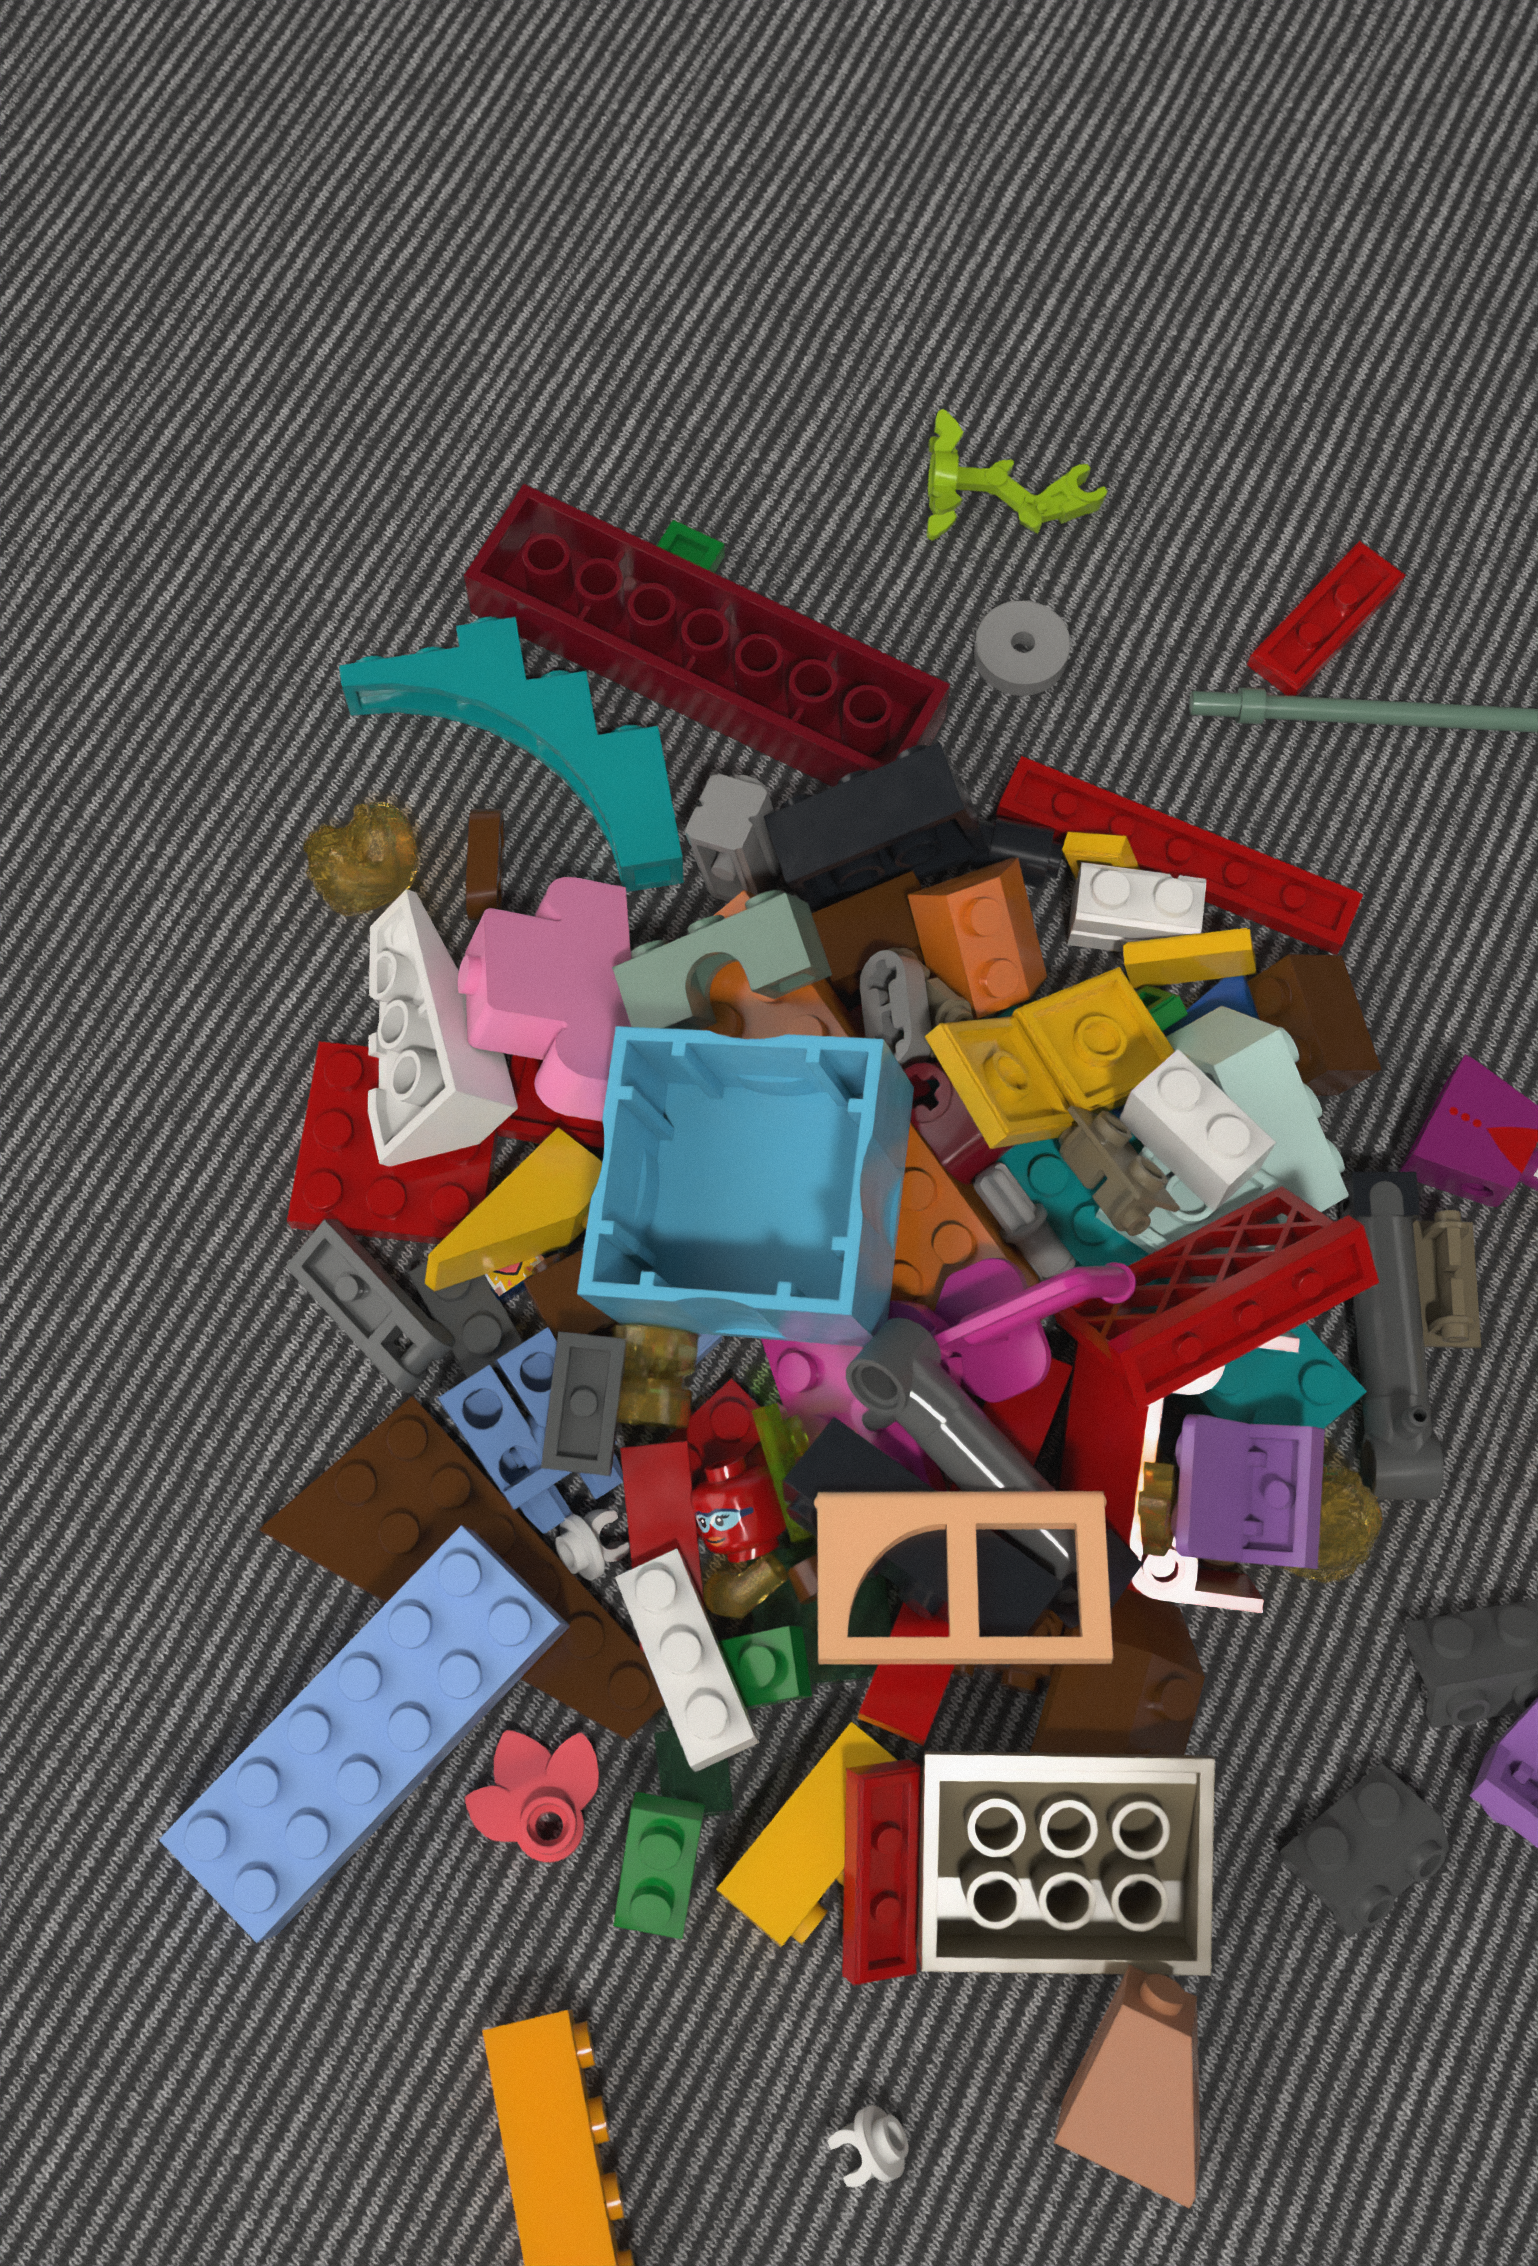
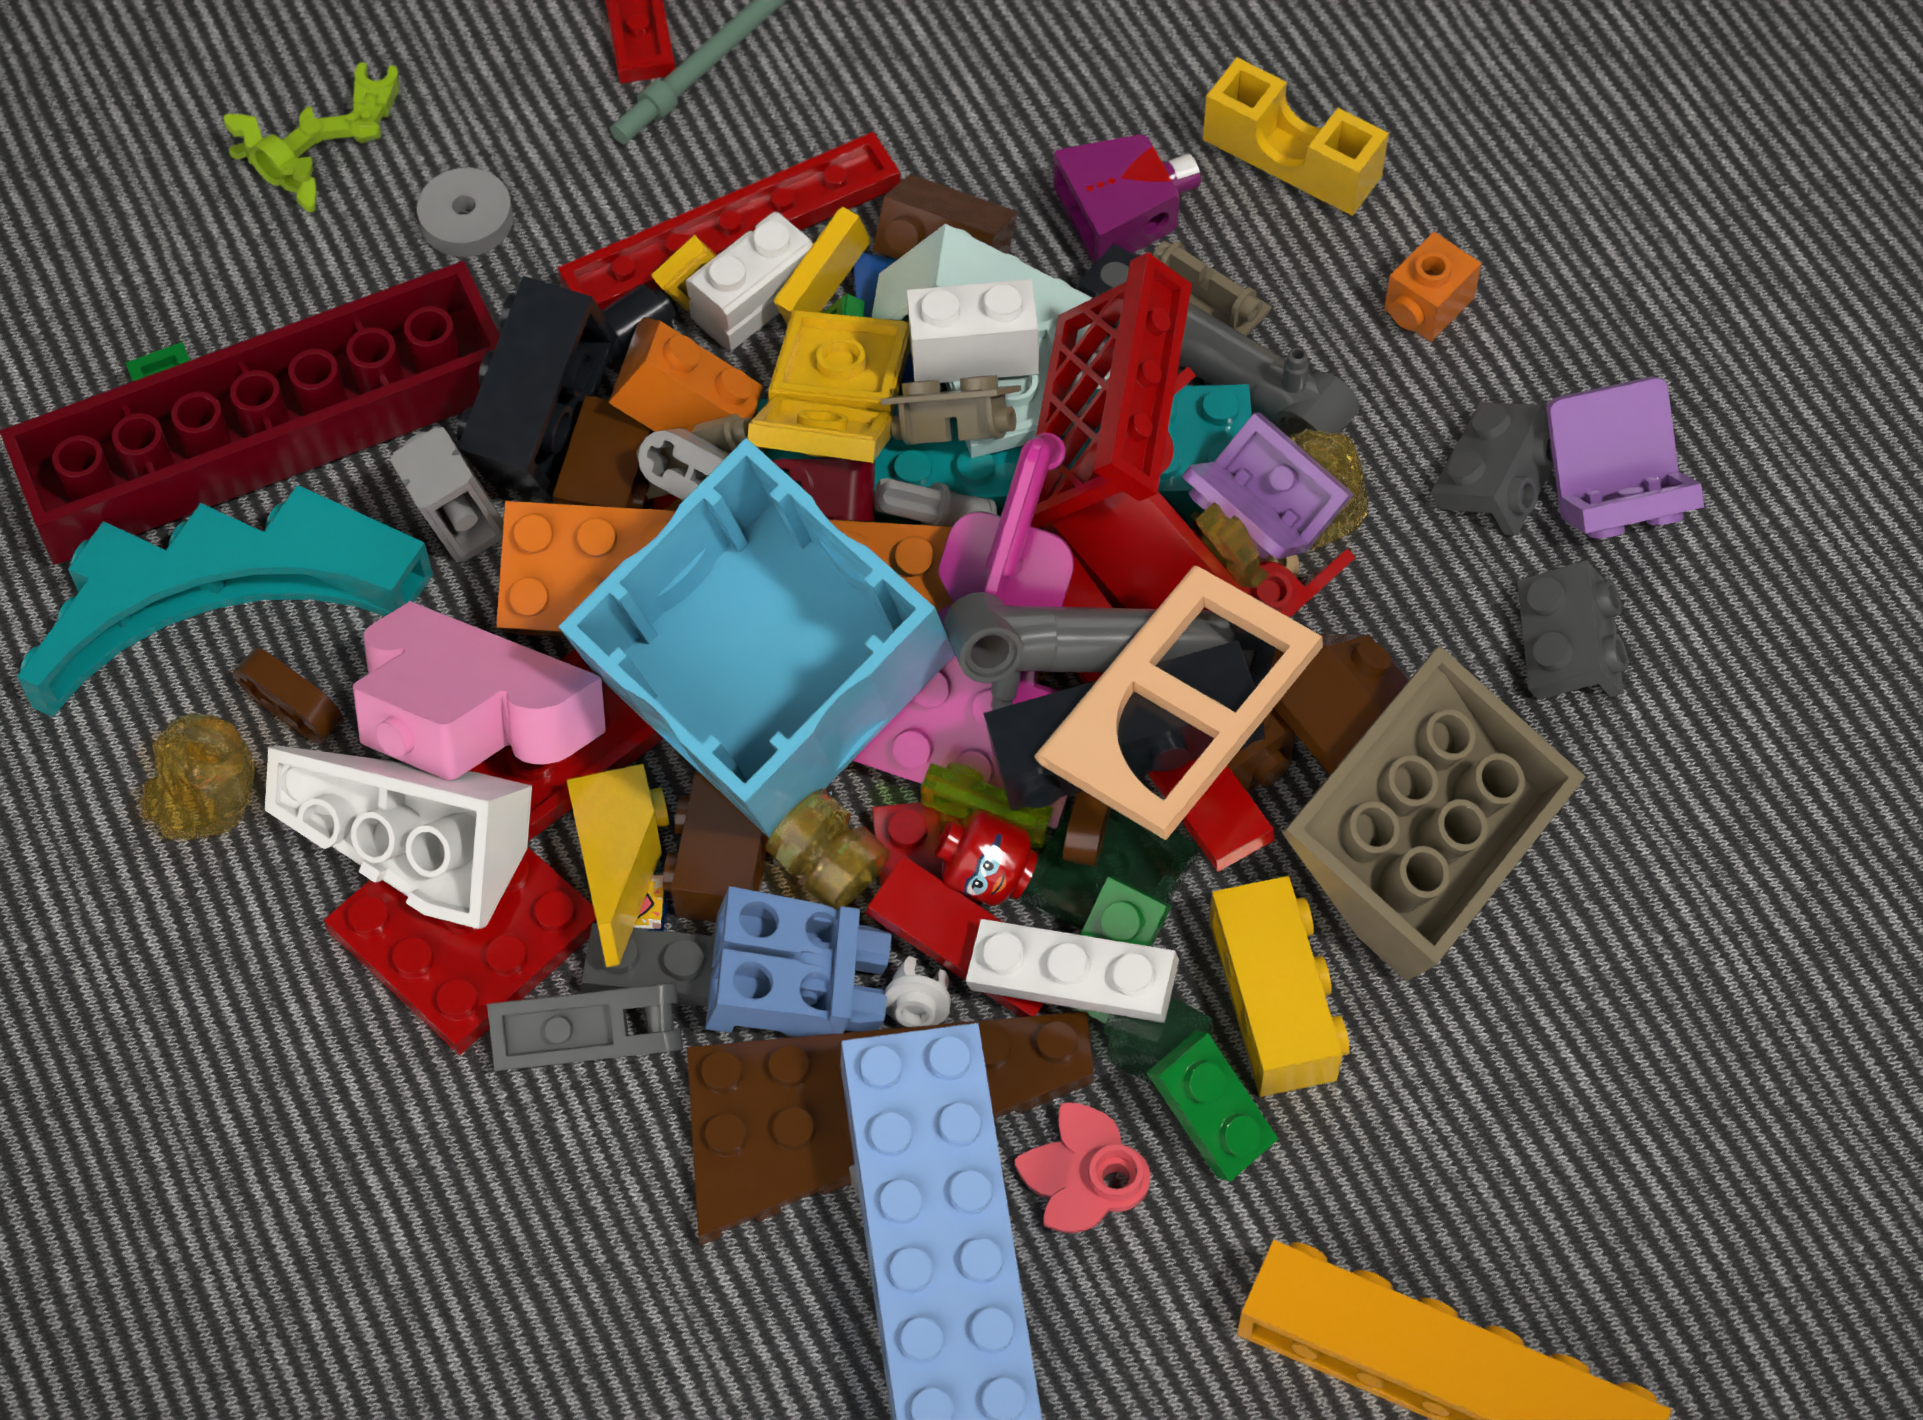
camera: 50 degrees left, 10 degrees down
(584, 1403) = (816, 897): dark grey plate -> none
(739, 1593) = (1051, 903): clear yellow arm -> none
(771, 939) = (569, 500): sand green arch -> none
(880, 2143) = (1537, 1099): white plate -> none
(881, 1871) = (1340, 949): red tile -> none
(1139, 2089) = (1627, 881): nougat slope -> none

